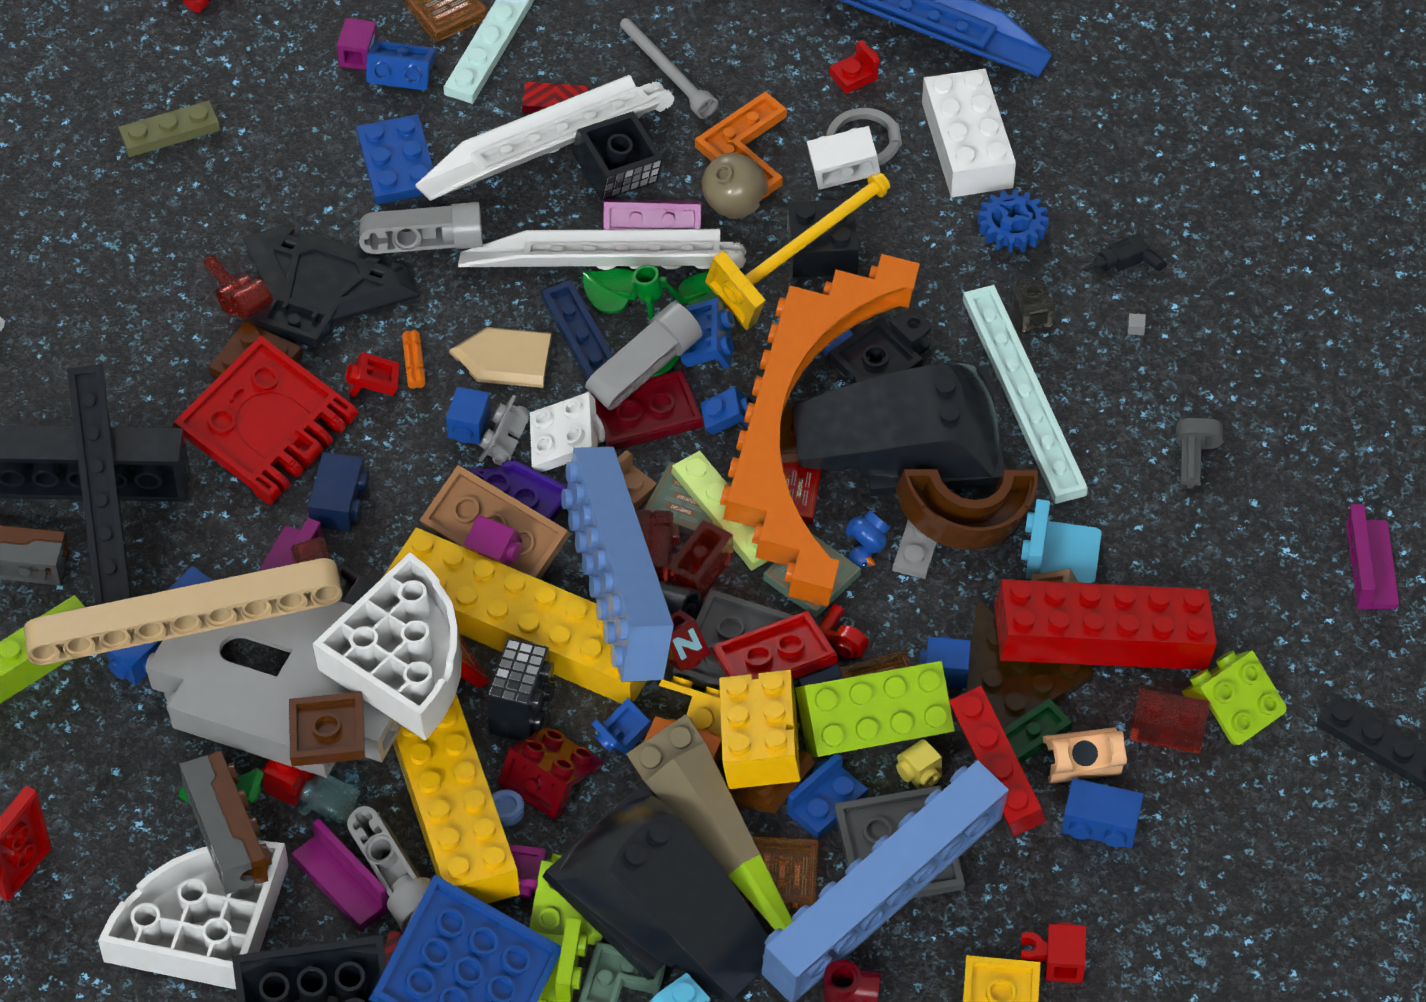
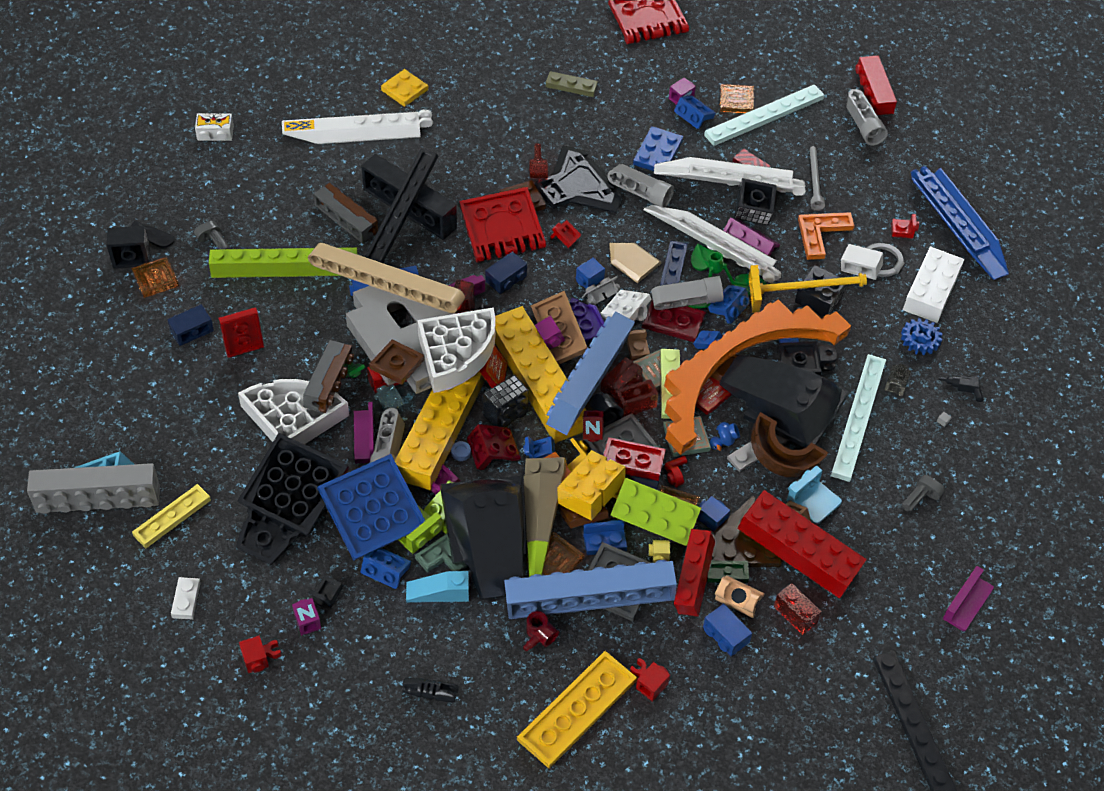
camera: 35 degrees right, 0 degrees up
(413, 359) = (590, 237): orange axle -> none
(734, 185) = (798, 244): dark tan cylinder -> none
(1238, 695) = (842, 620): lime bracket -> none

